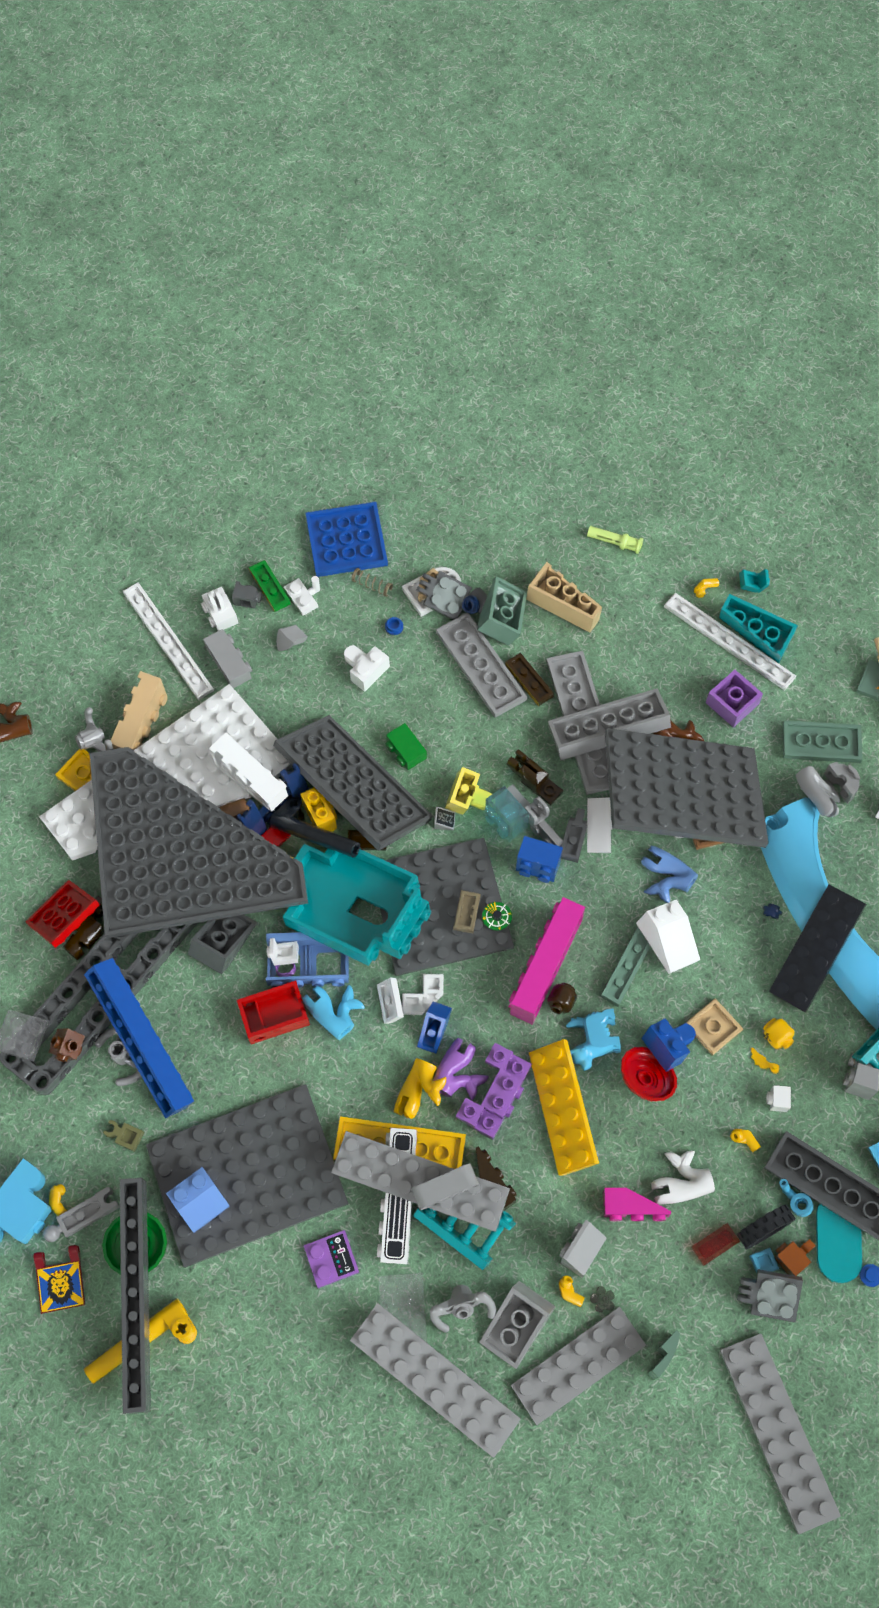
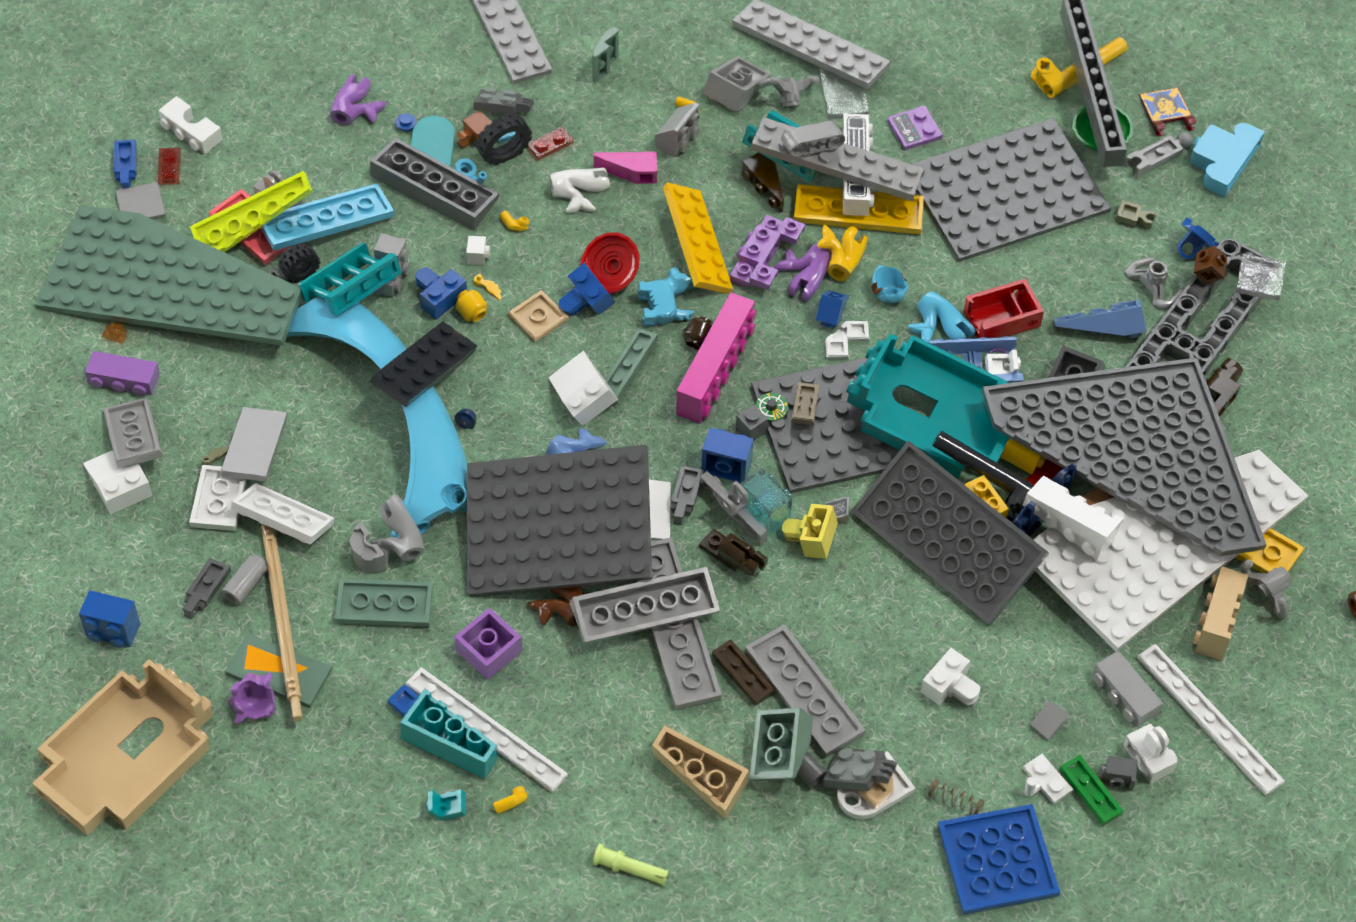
camera: 175 degrees right, 10 degrees down
(55, 1198) = (1188, 164): yellow arm -> none
(62, 913) = (1251, 394): red plate -> none
(69, 1096) = (1197, 237): none -> blue tile
(139, 1037) = (1140, 278): blue brick -> none
(175, 1006) = (1121, 319): none -> medium blue wedge
(197, 1199) = (1051, 157): medium blue slope -> none
(378, 1046) = (889, 284): none -> medium azure hair
(390, 1000) = (879, 324): white plate -> none
(394, 626) = (920, 740): blue plate -> none
(406, 747) = (890, 585): green brick -> none
(470, 604) = (822, 756): dark blue plate -> none
(515, 898) = (752, 423): none -> dark grey brick
(578, 1365) = (680, 59): light grey plate -> none
(602, 1299) = (658, 104): clear smoke plant -> none
(795, 660) = (403, 700): none -> blue plate
(811, 1048) = (439, 292): none -> blue brick

